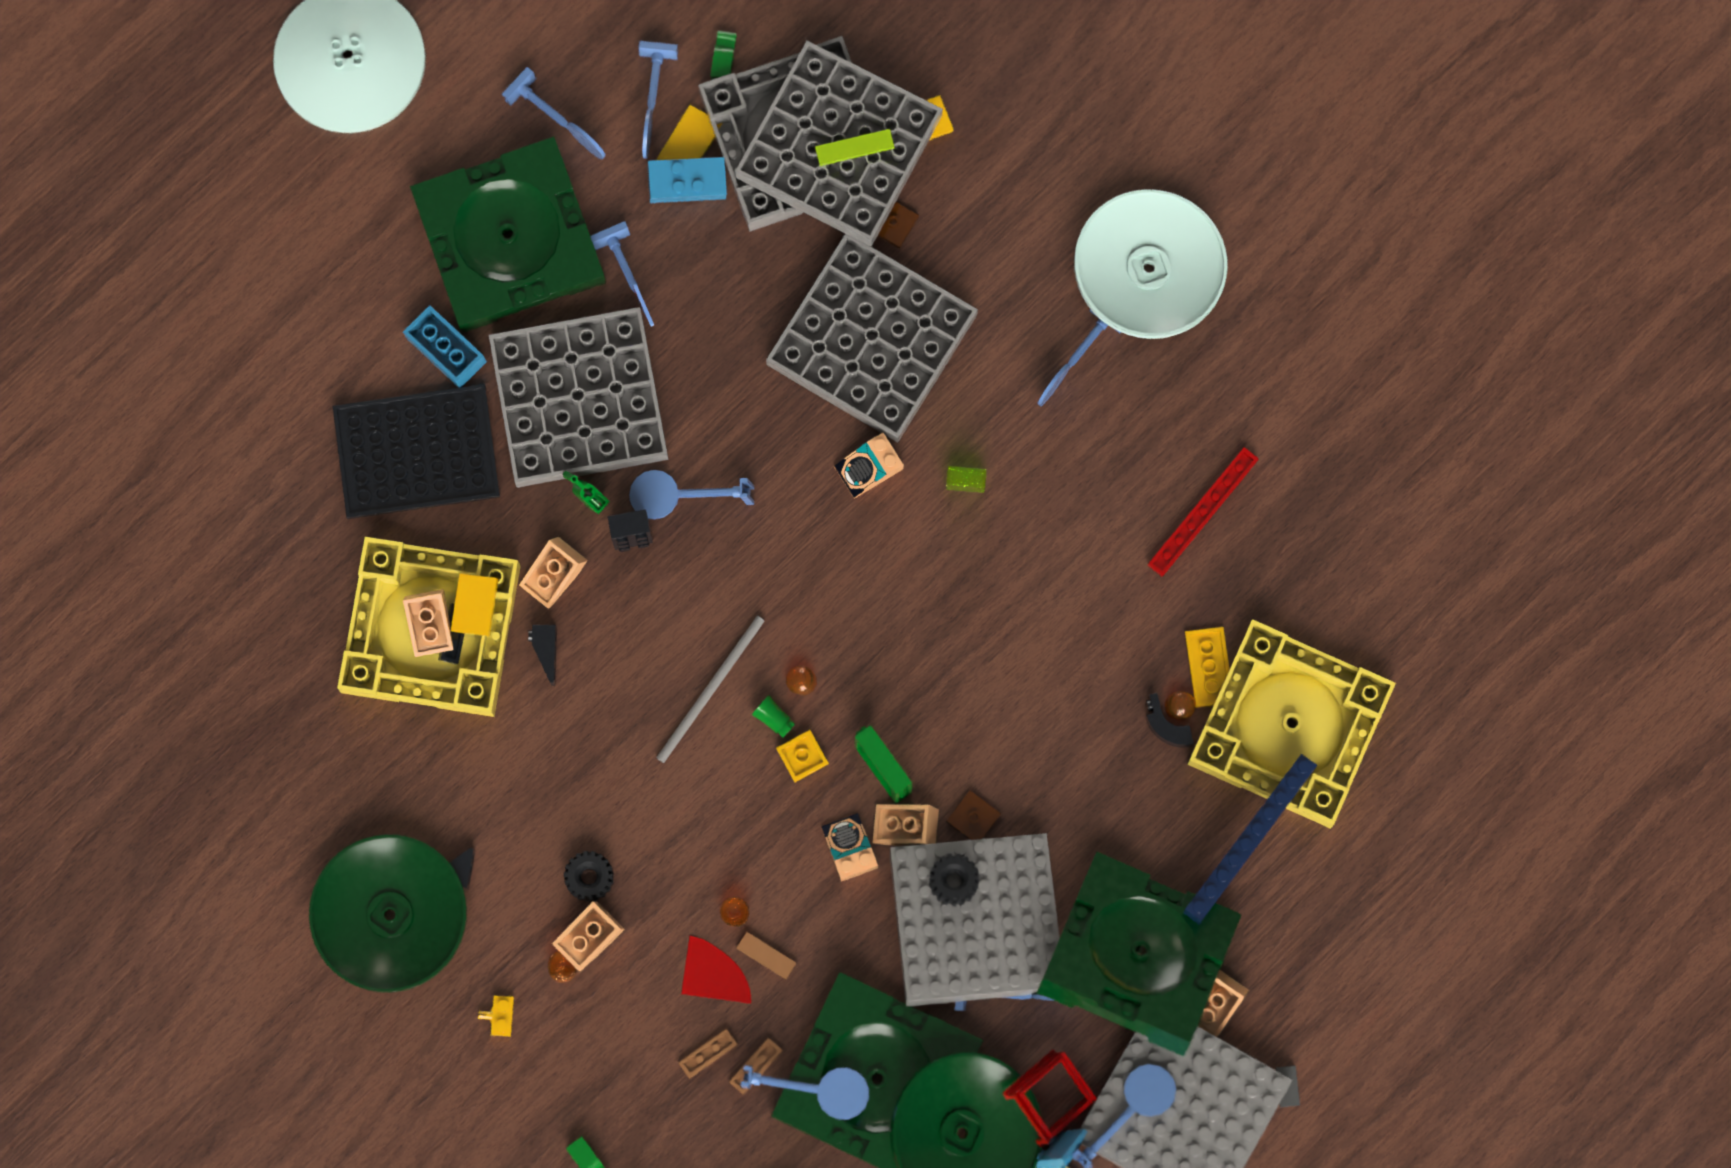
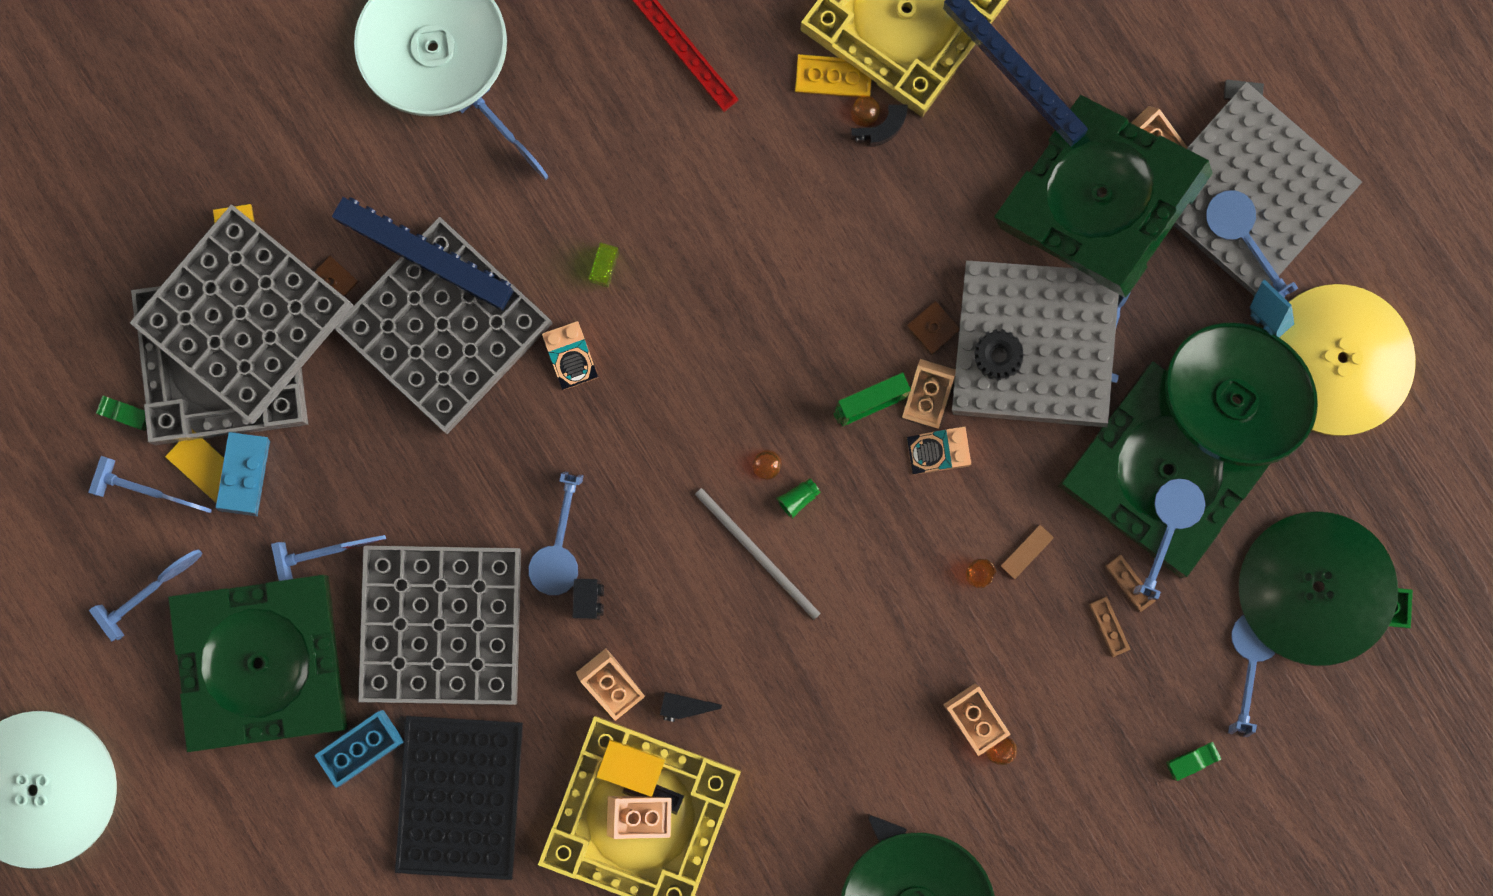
camera: 85 degrees left, 5 degrees up
(500, 1016) = (1035, 820): yellow plate -> none
(586, 861) = (932, 711): black tyre -> none
(590, 497) = (539, 635): green piece -> none
(713, 974) = (1033, 606): red sticker -> none
(802, 756) = (841, 478): yellow plate -> none
(854, 147) = (251, 298): lime tile -> none
(936, 298) = (423, 253): none -> dark blue brick
(1033, 1075) = (1200, 323): red piece -> none

